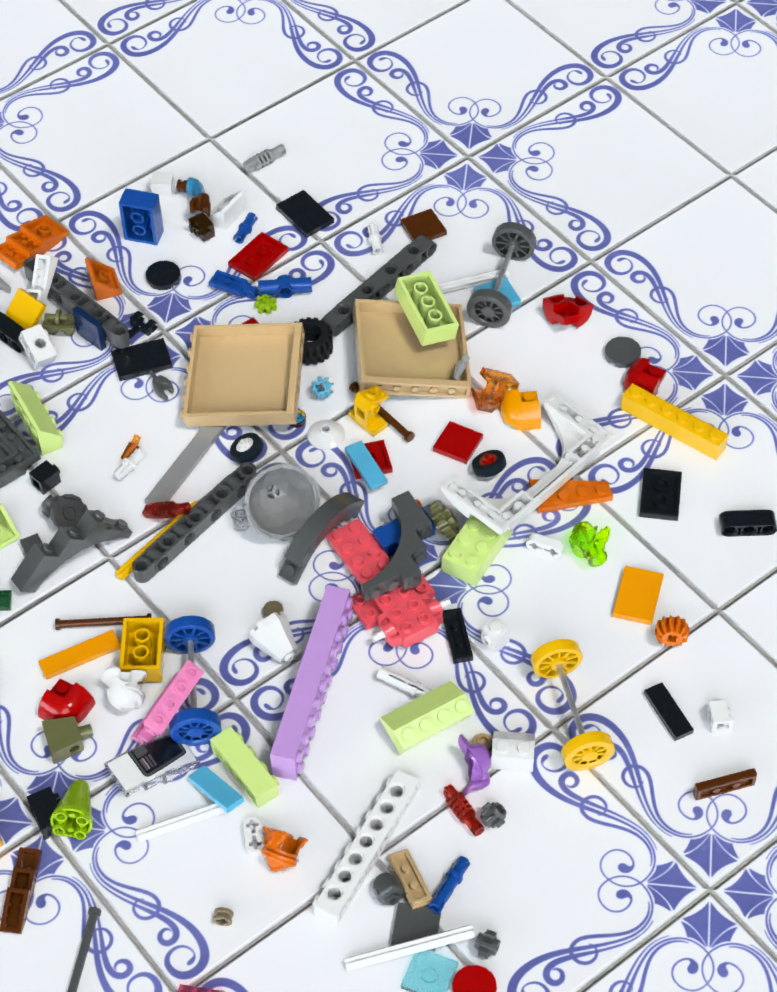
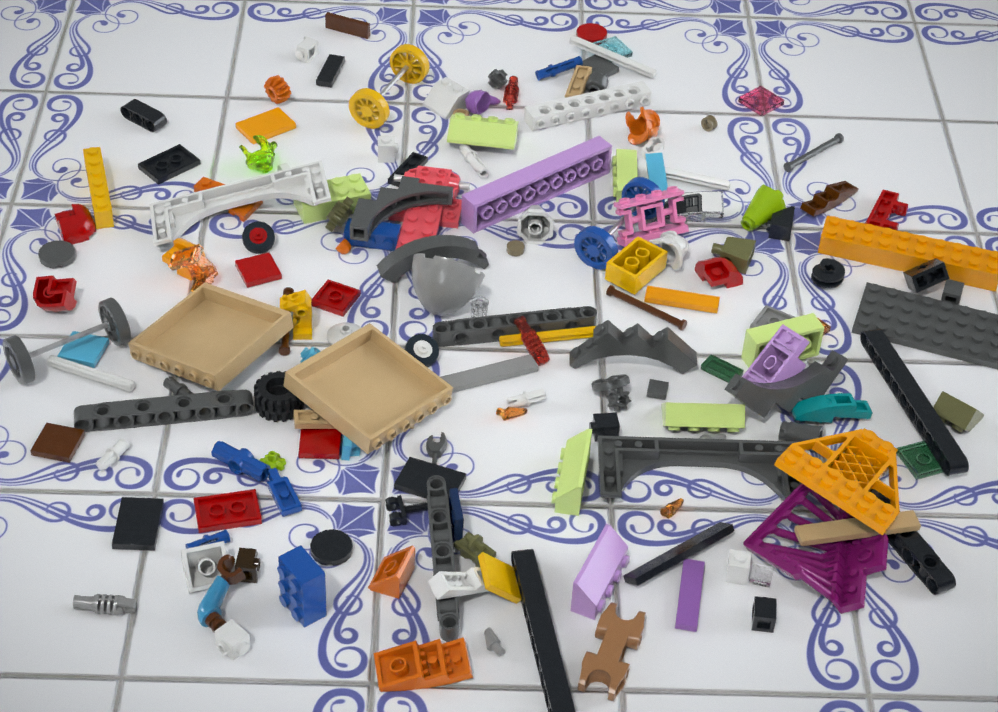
camera: 145 degrees left, 10 degrees down
(38, 356) = (516, 532): white brick -> none
(366, 465) = (347, 286): medium azure tile -> none
(426, 308) = (171, 331): yellowish green brick -> none
(461, 366) = (196, 293): light grey bar -> none
(487, 944) = (564, 37): dark grey gear -> none

